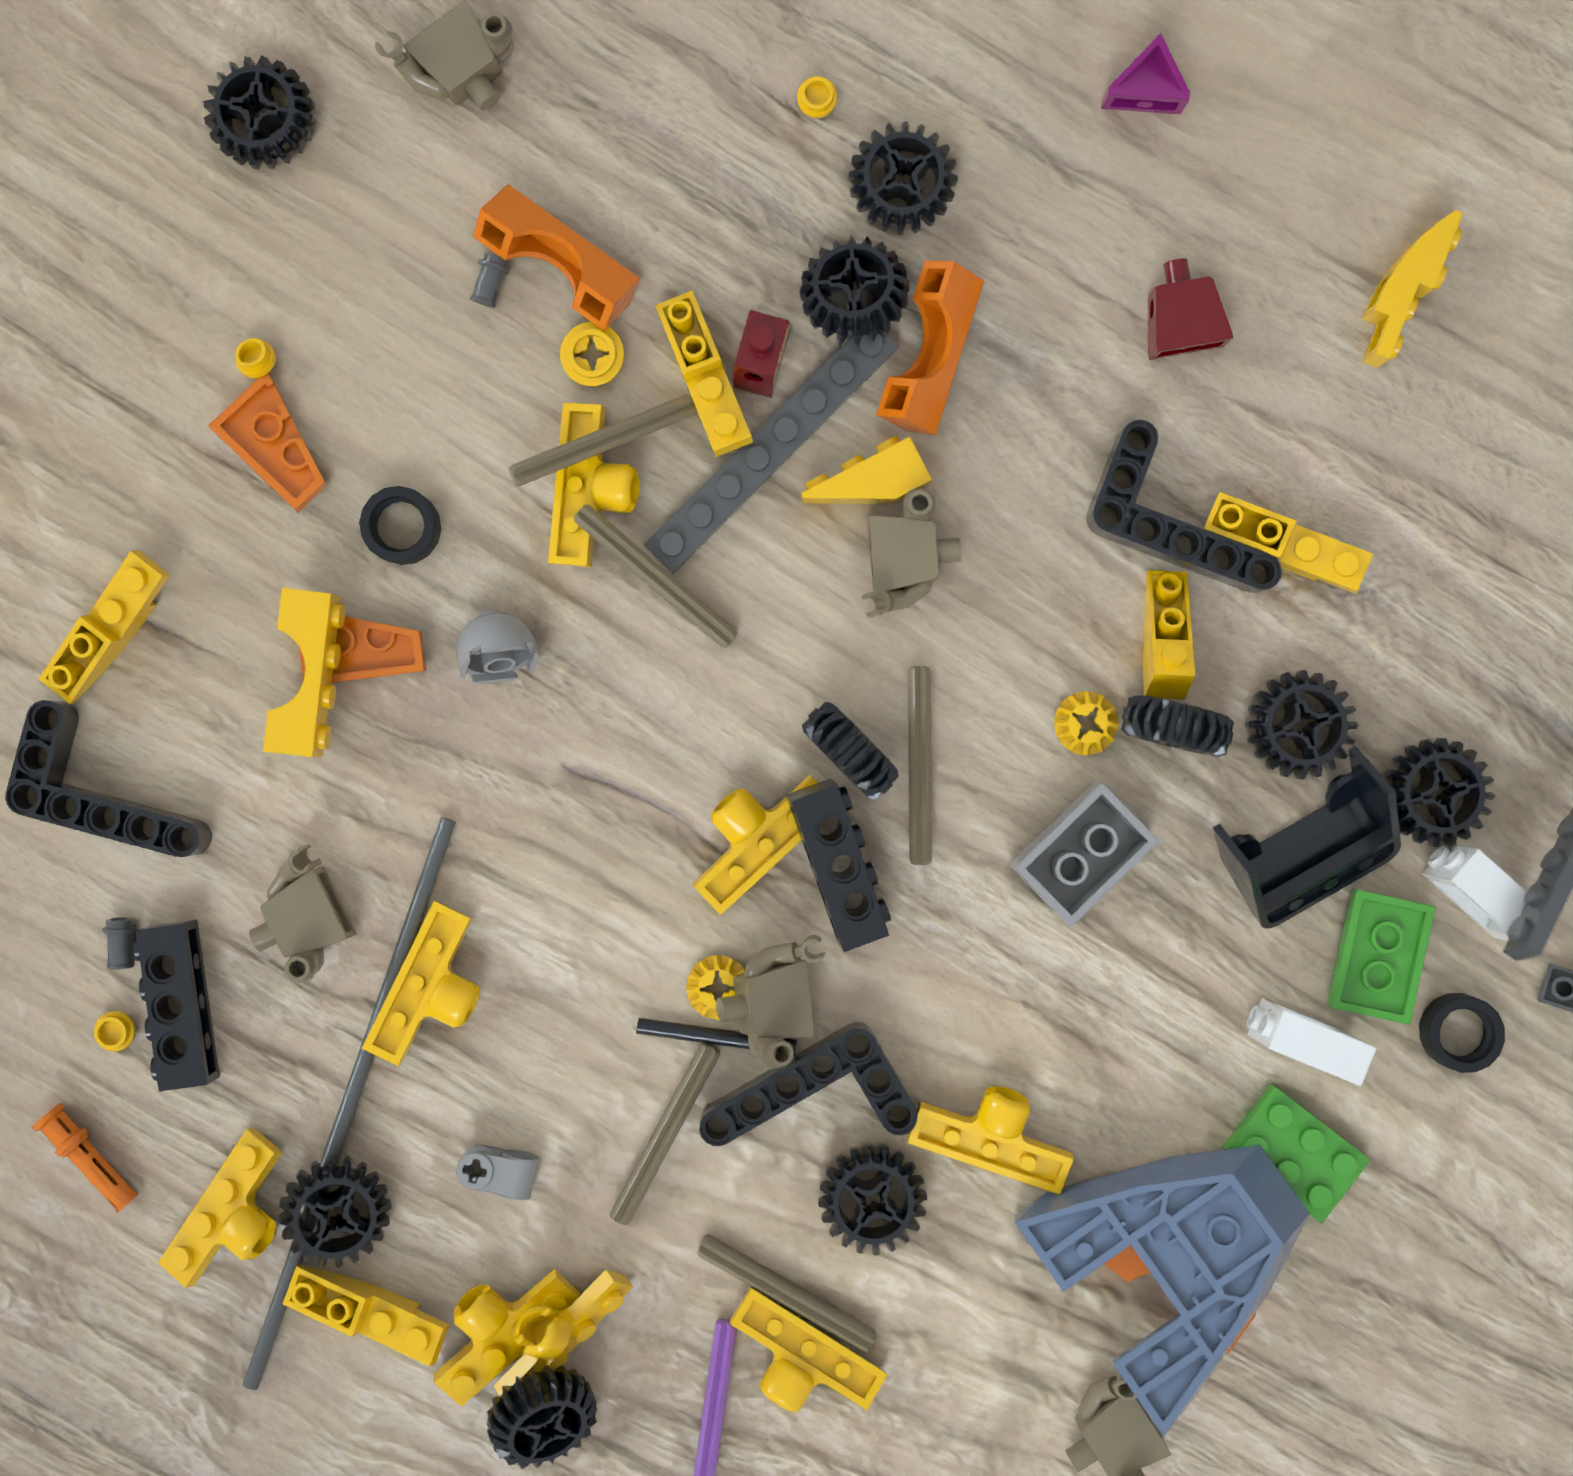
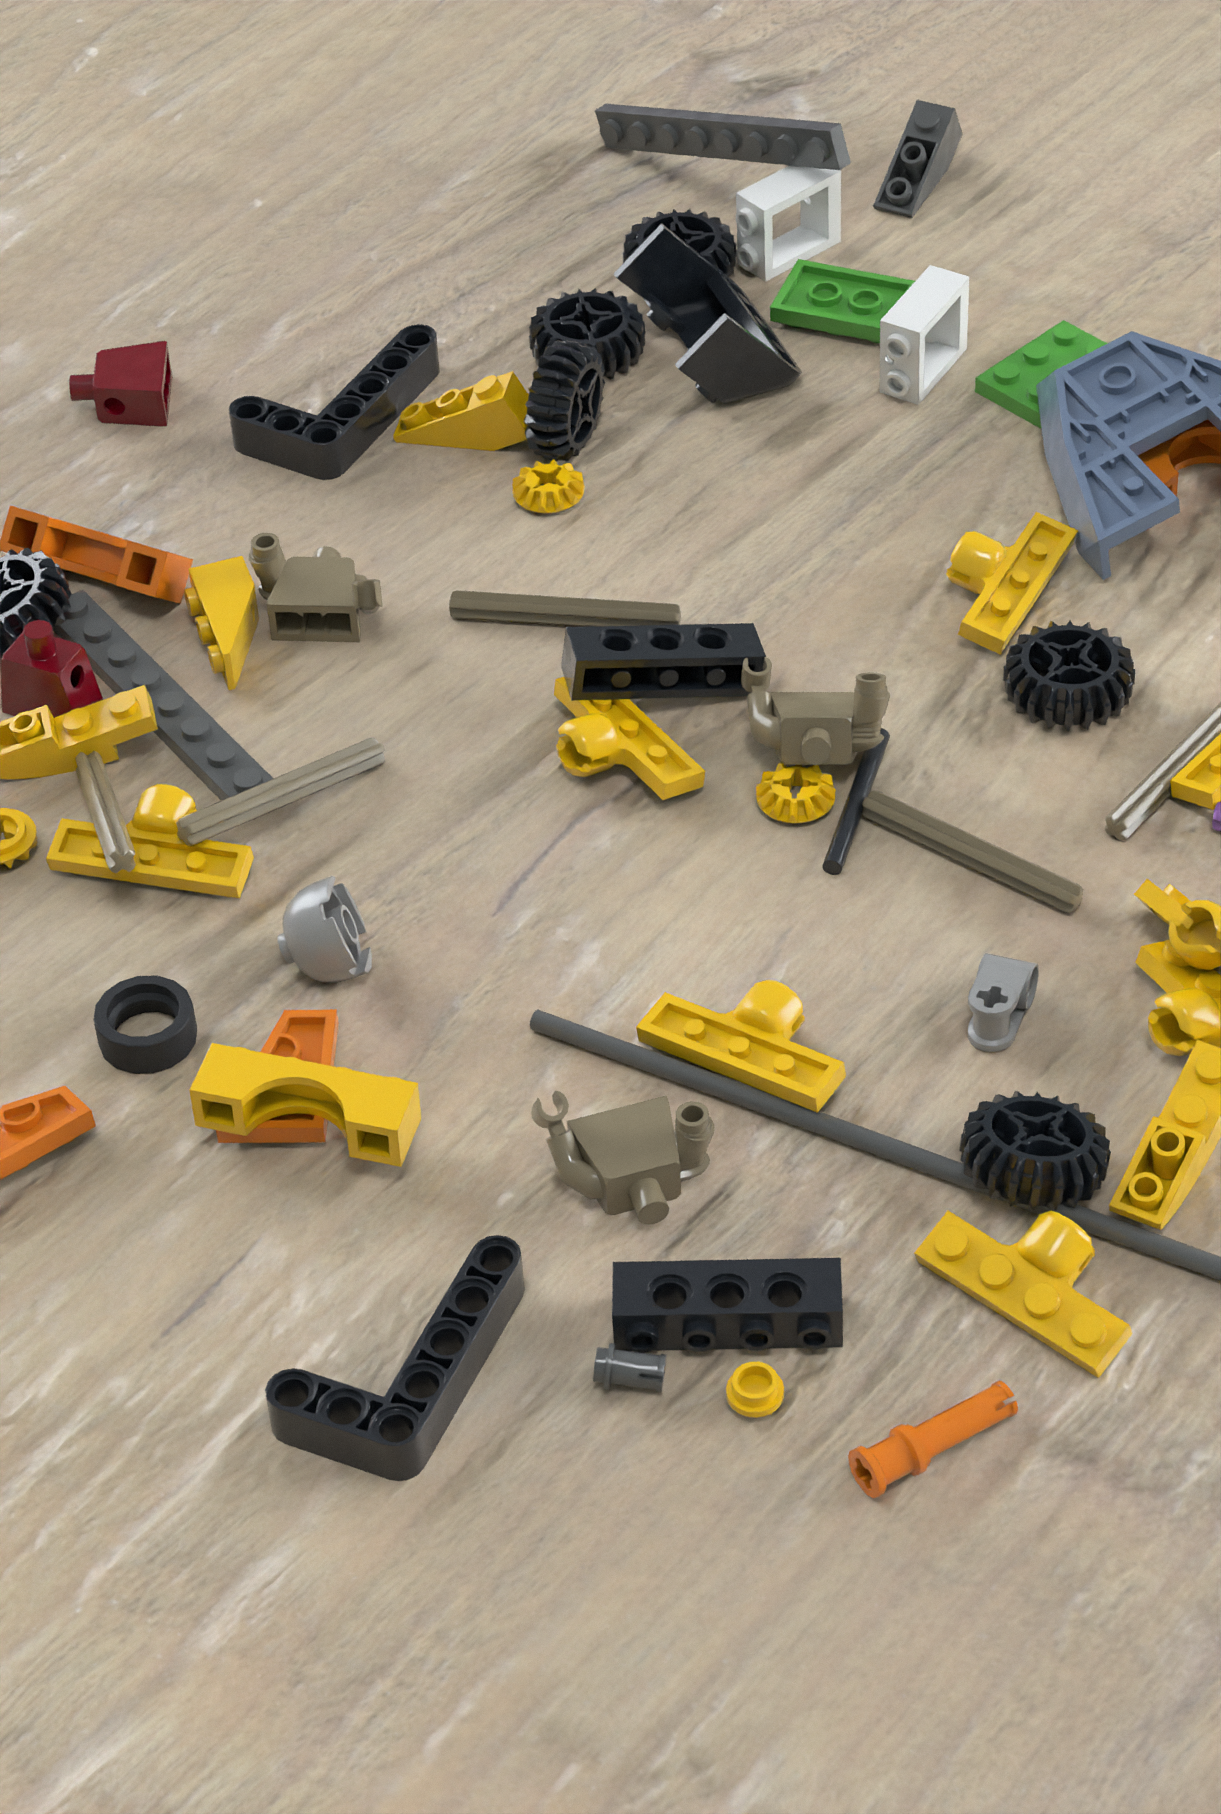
camera: 75 degrees left, 45 degrees down
(107, 629) = (179, 1331): yellow slope -> none
(810, 1082) = (917, 726): black beam -> none
(850, 750) = (524, 635): black gear -> none
(1083, 853) = (690, 481): light grey brick -> none
(1294, 546) = (415, 303): yellow slope -> none
(1409, 278) = (159, 251): yellow slope -> none
(1491, 1042) = (934, 237): black tyre -> none

